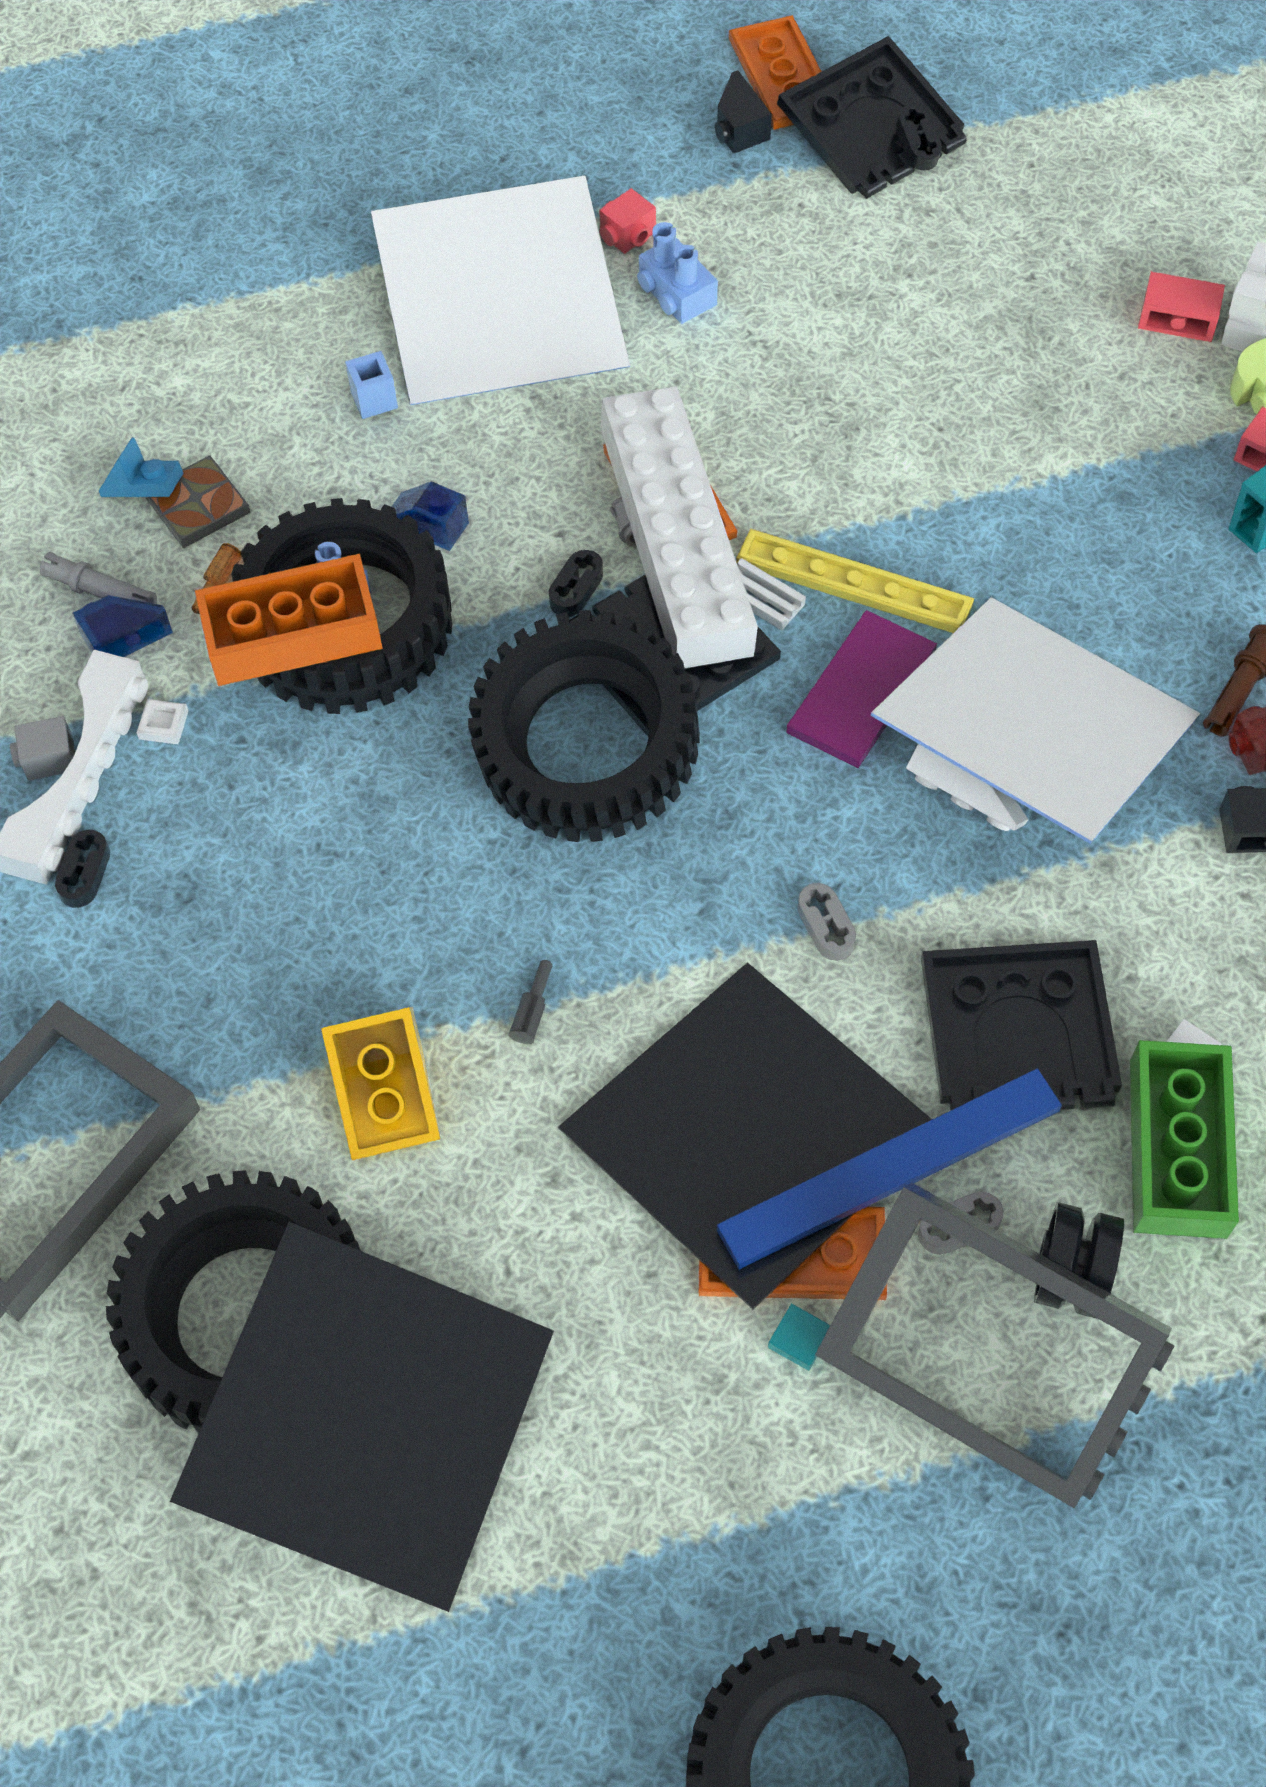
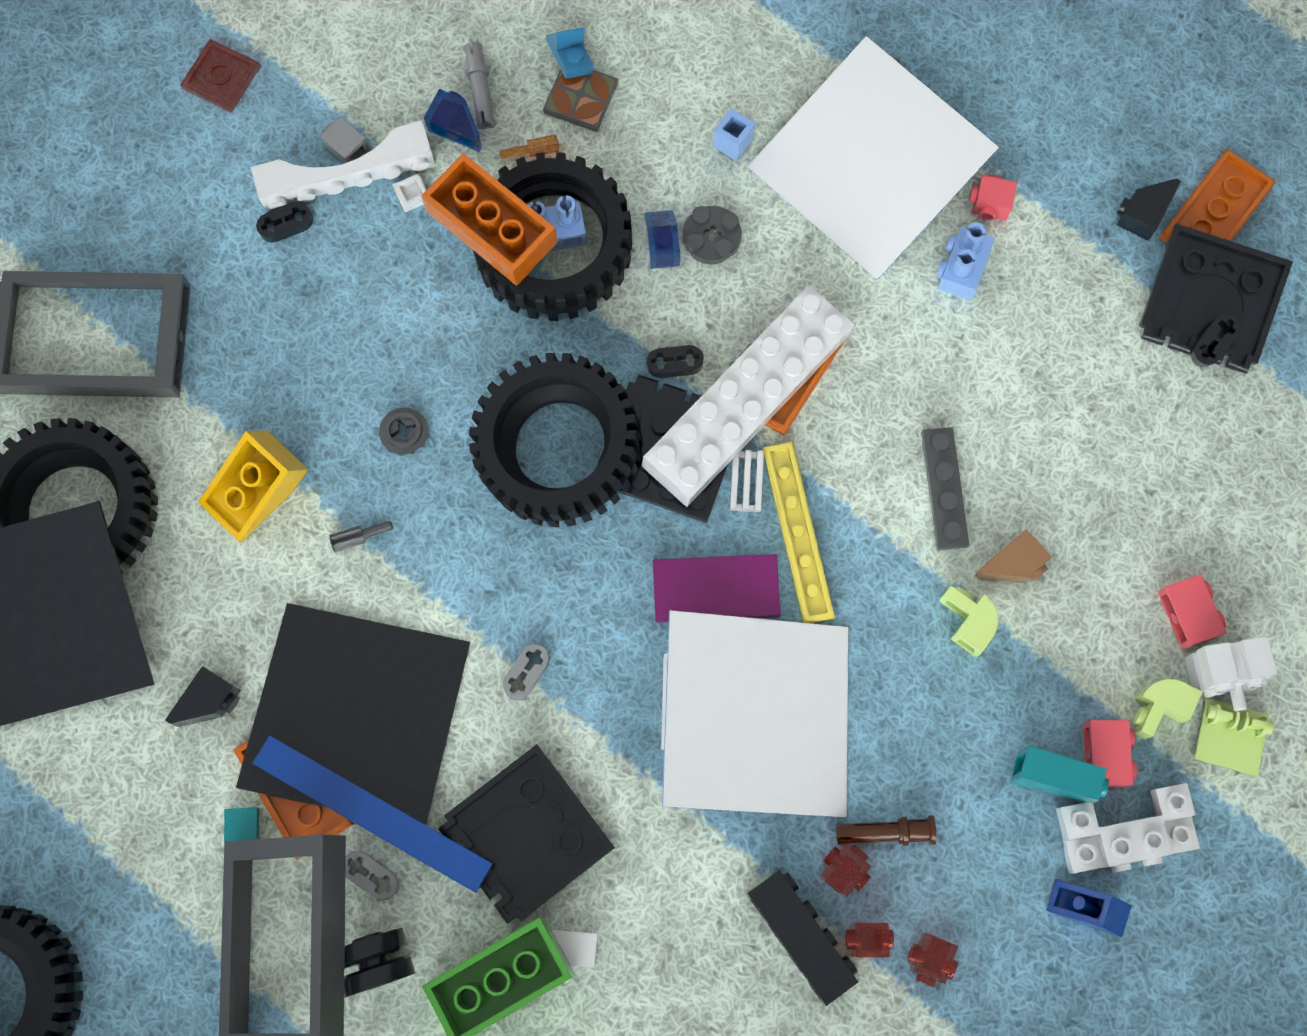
camera: 55 degrees right, 15 degrees up
(433, 873) = (390, 427): none -> dark grey gear
(468, 455) = (725, 224): none -> dark grey plate
(614, 1282) = (204, 700): none -> black slope
(903, 432) = (945, 488): none -> dark grey plate
(1026, 411) = (1017, 561): none -> medium nougat slope
(1066, 475) = (979, 619): none -> yellowish green brick

